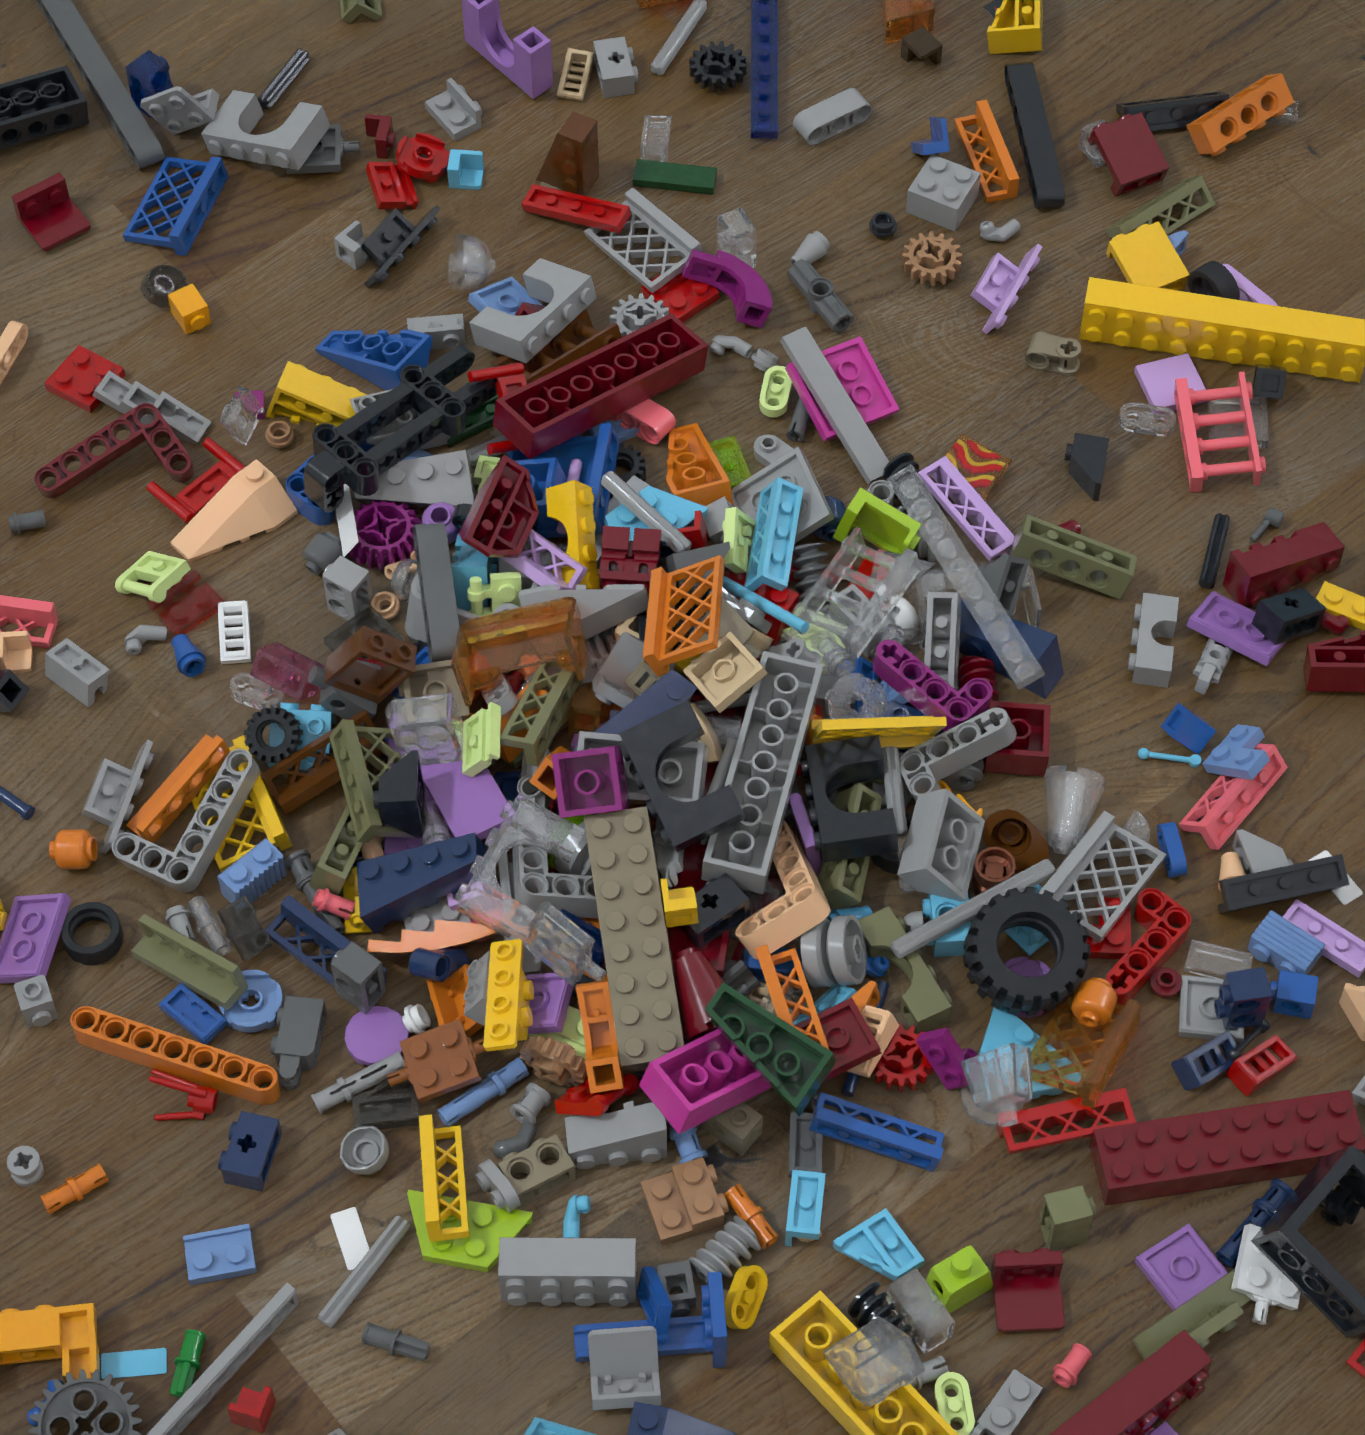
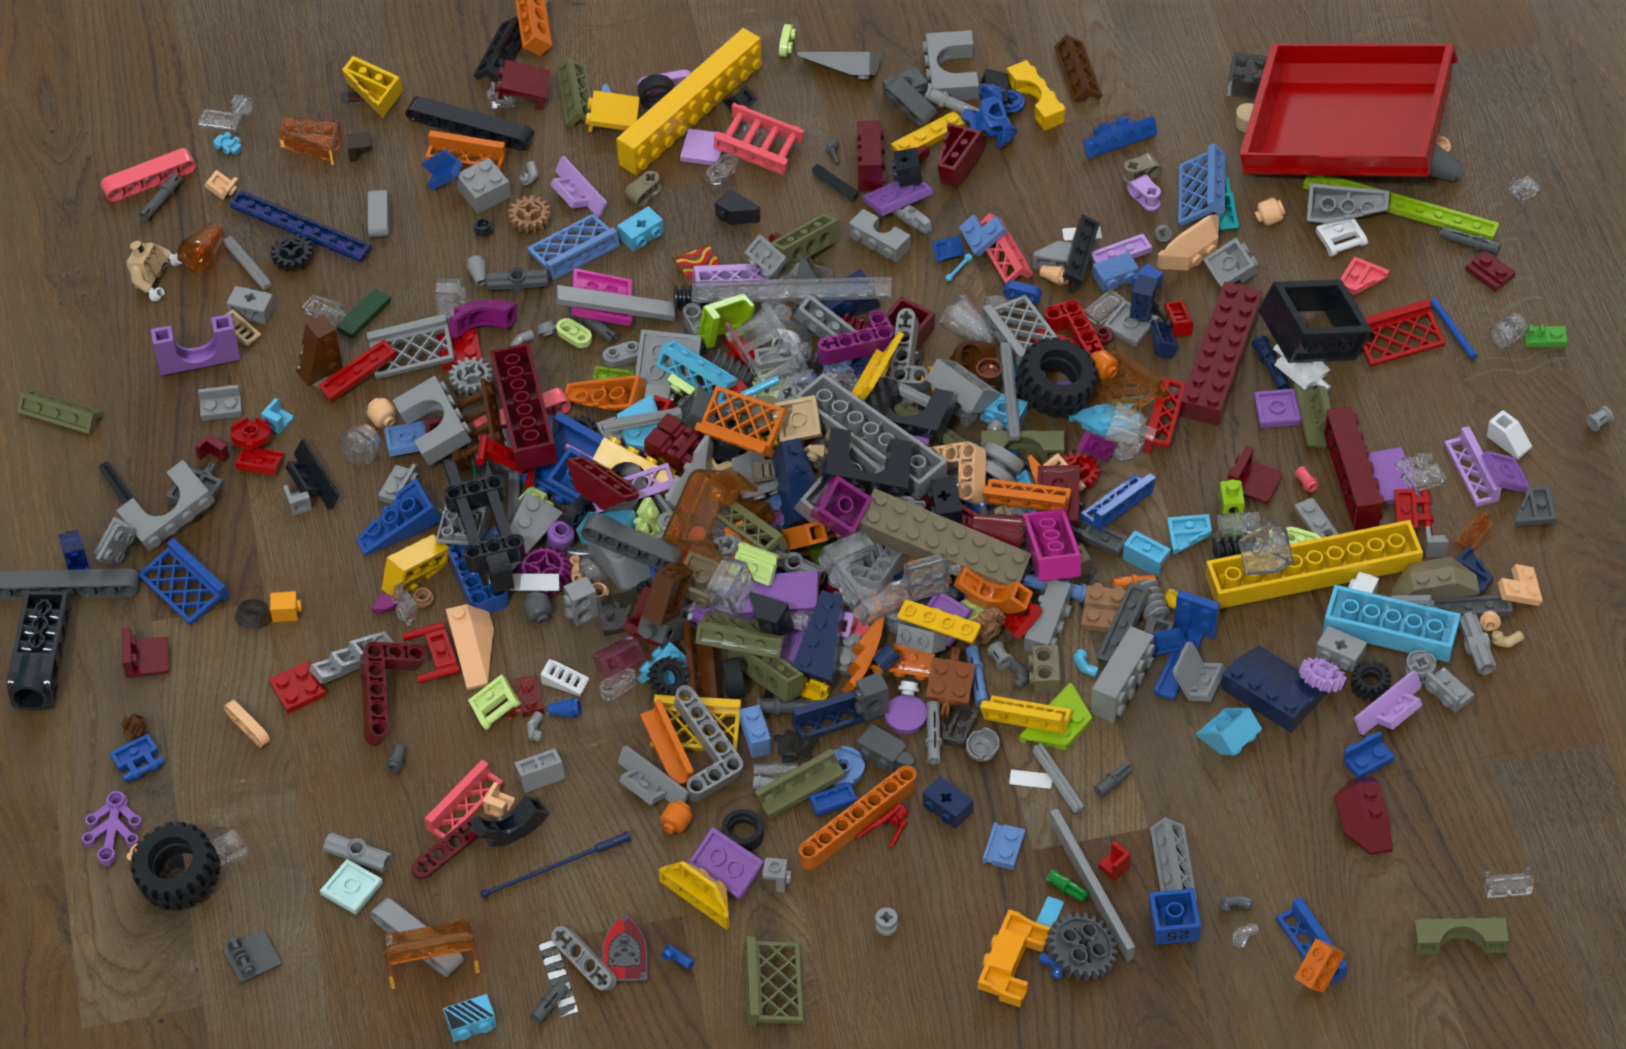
camera: 60 degrees left, 5 degrees down
(74, 1188) = (916, 902): orange pin -> none
(316, 808) = (733, 678): none -> black tyre
(332, 903) = (803, 697): coral pin -> none
(500, 1189) = (1045, 689): light grey plate -> none
(524, 257) = (381, 412): none -> light nougat head
(669, 1230) = (1126, 616): none -> dark grey plate
(679, 905) = (943, 508): yellow panel -> none
(775, 1049) = (1060, 503): dark green wedge -> none
(911, 339) = (577, 253): none -> medium blue fence
(986, 380) = (640, 229): none -> medium azure brick
(1004, 523) = (766, 256): none -> light grey bracket
(1066, 1217) = (1224, 438): olive brick -> none

